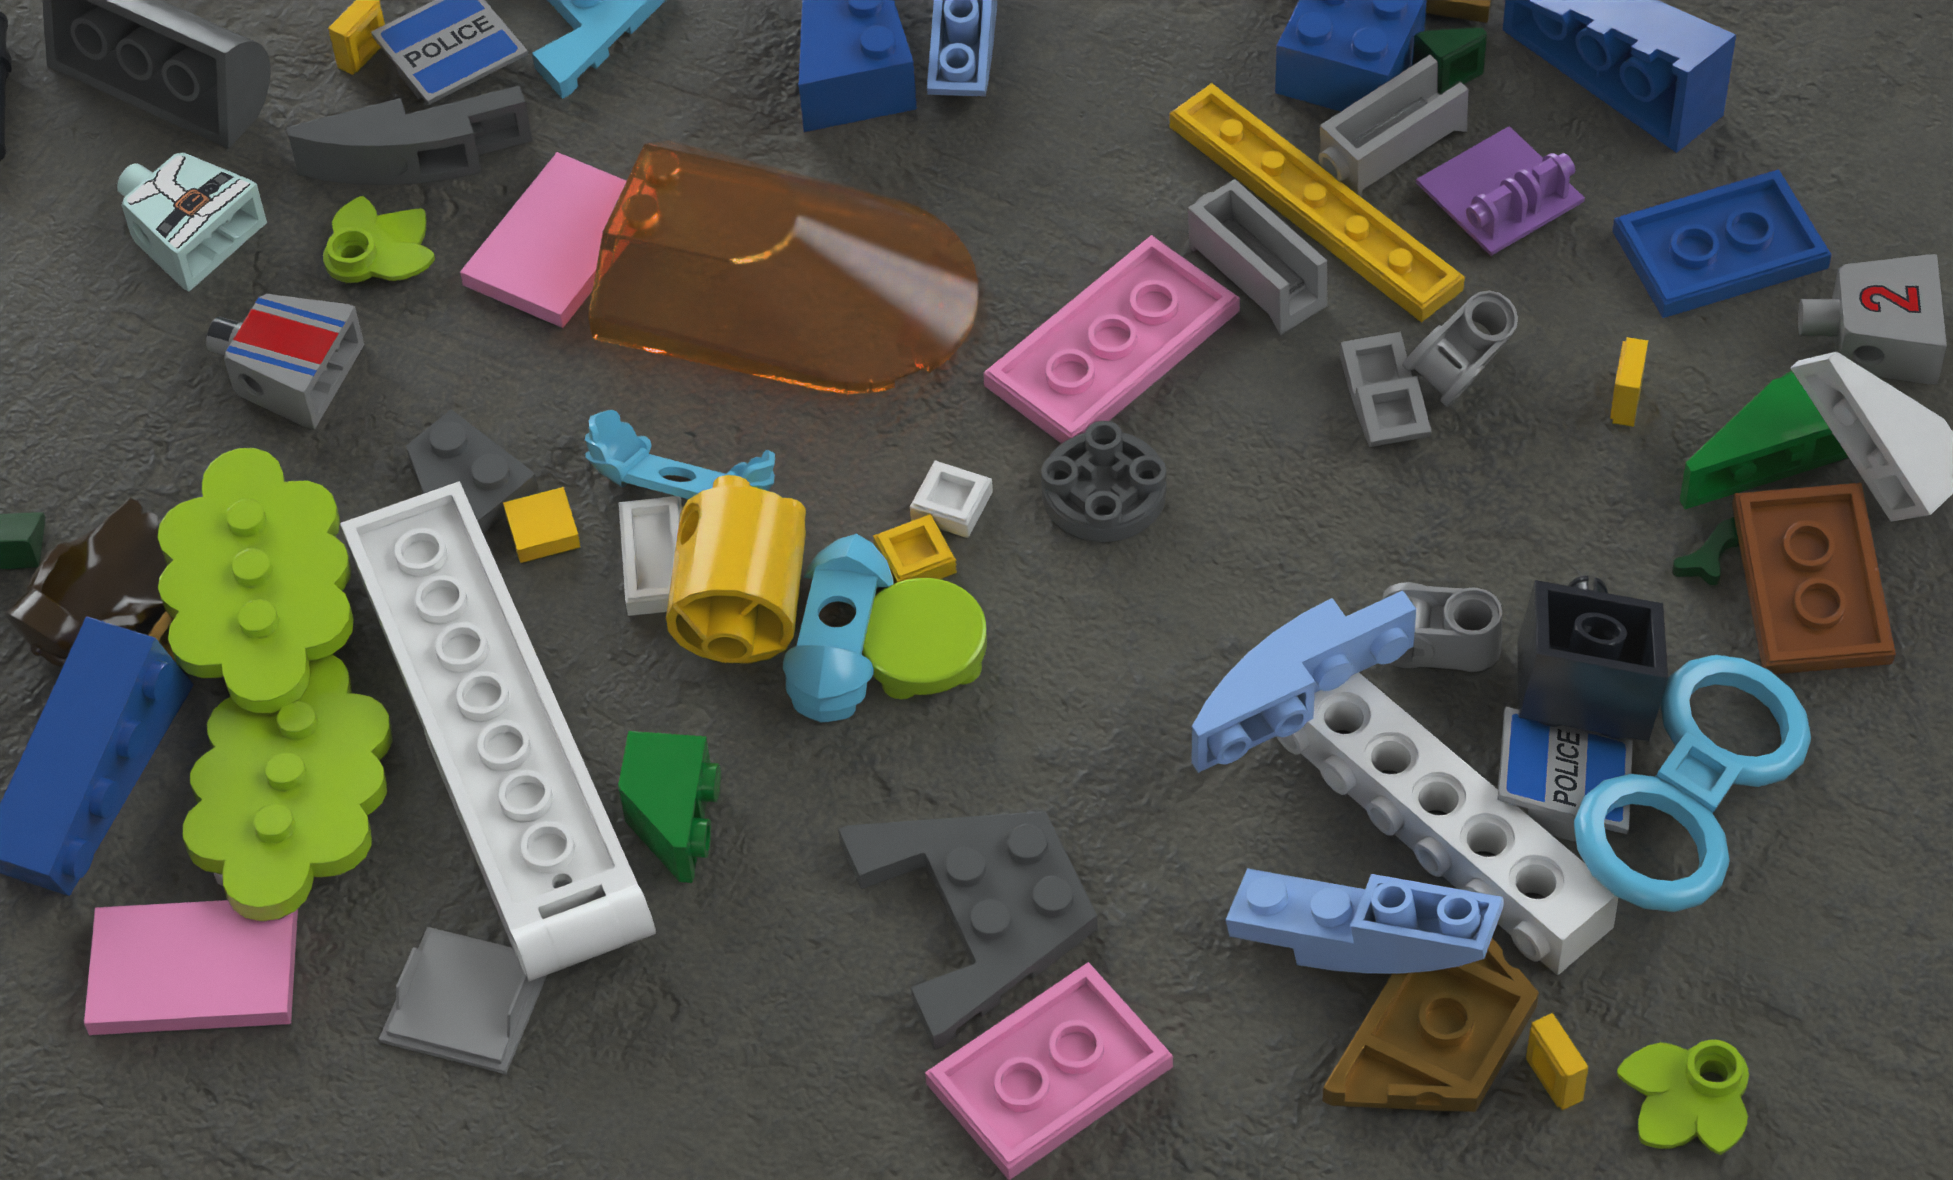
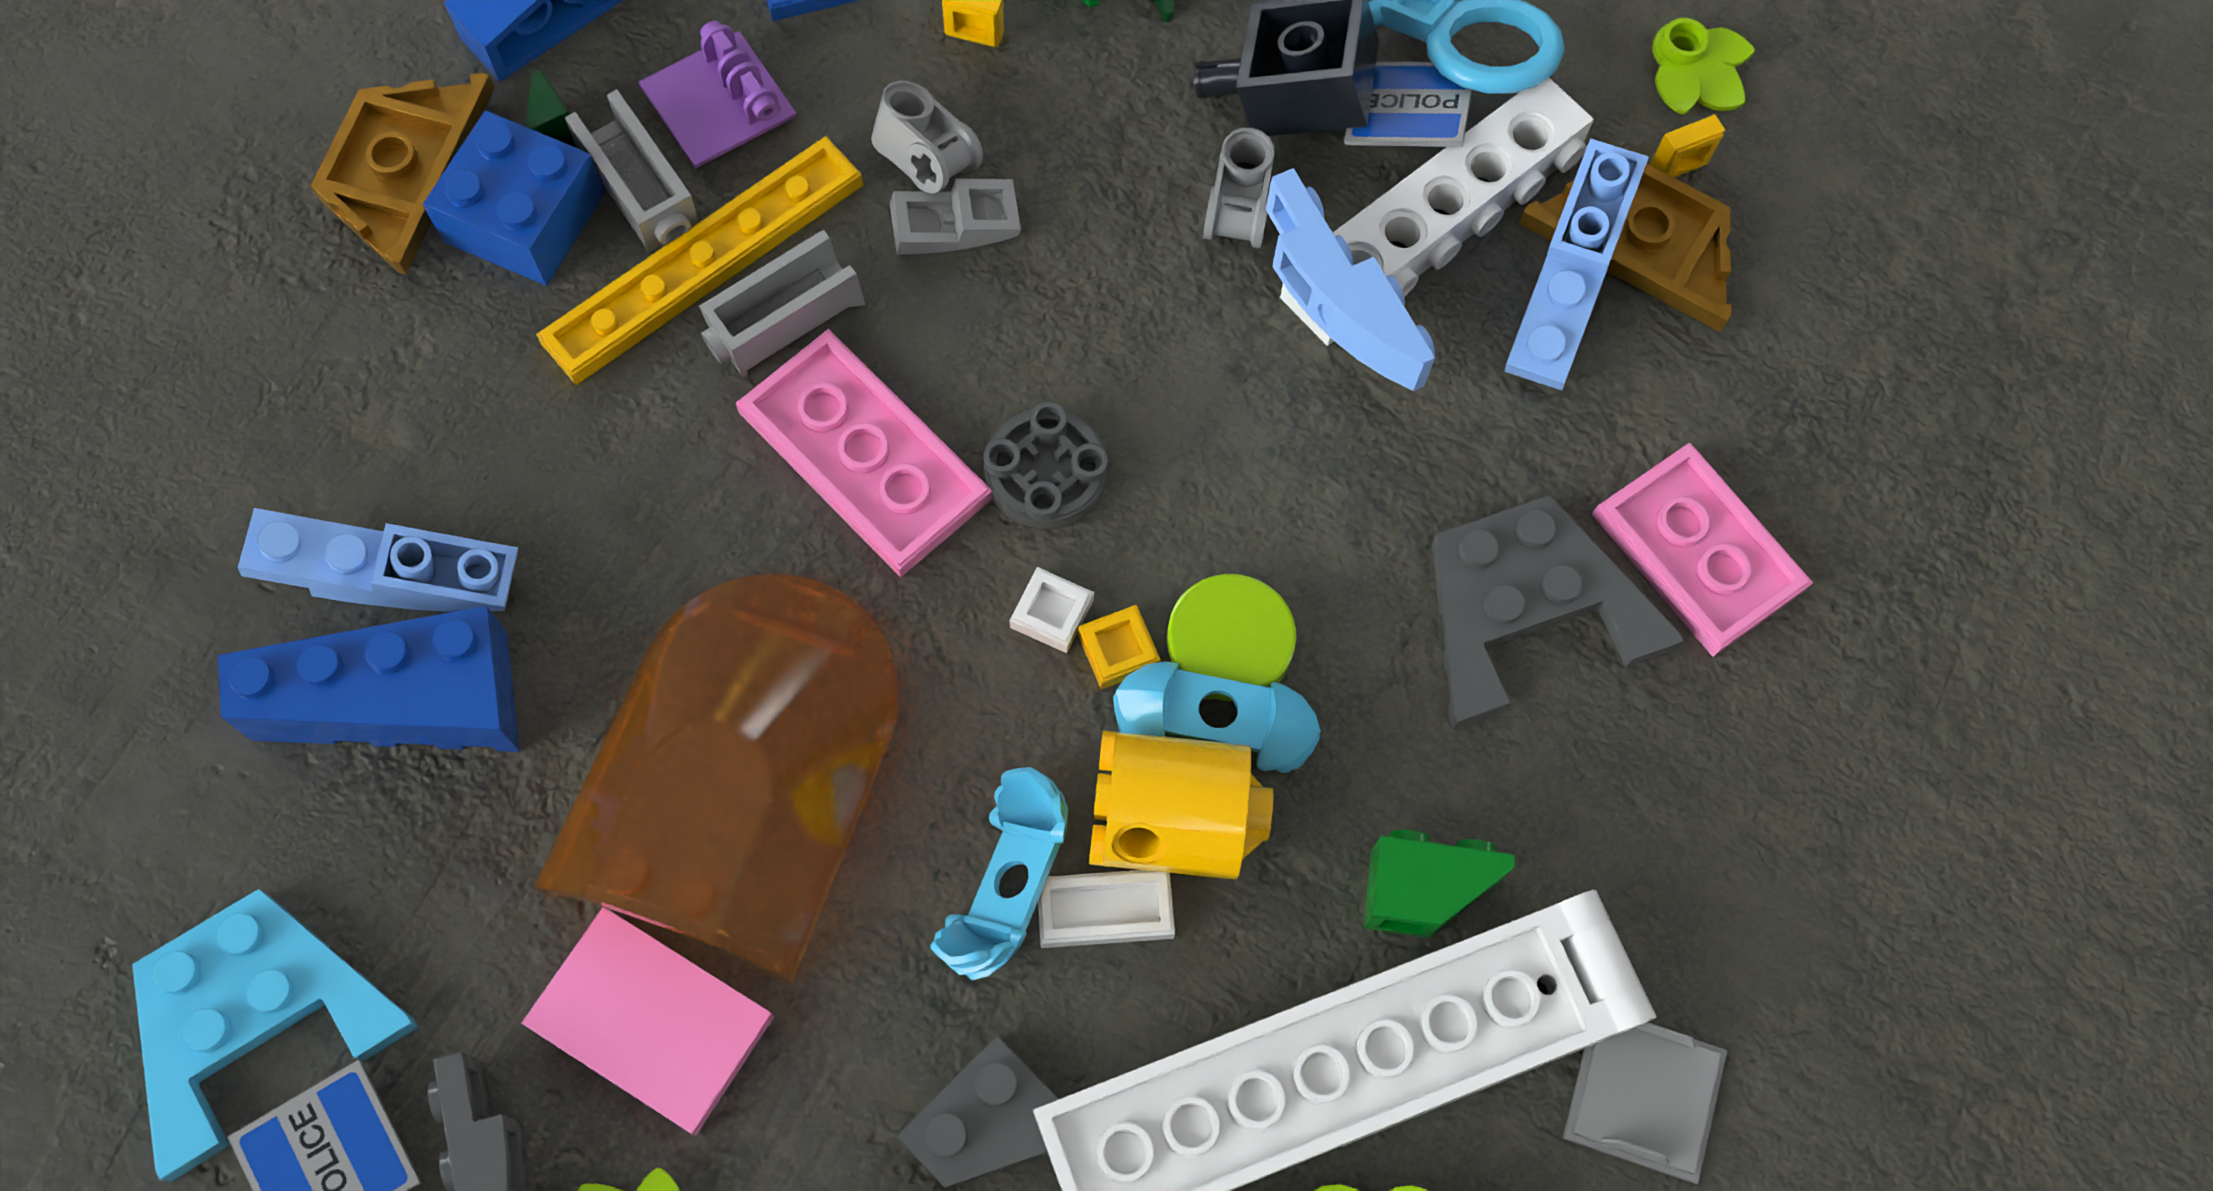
camera: 95 degrees left, 15 degrees up
(541, 524) = (1059, 1029): yellow tile -> none

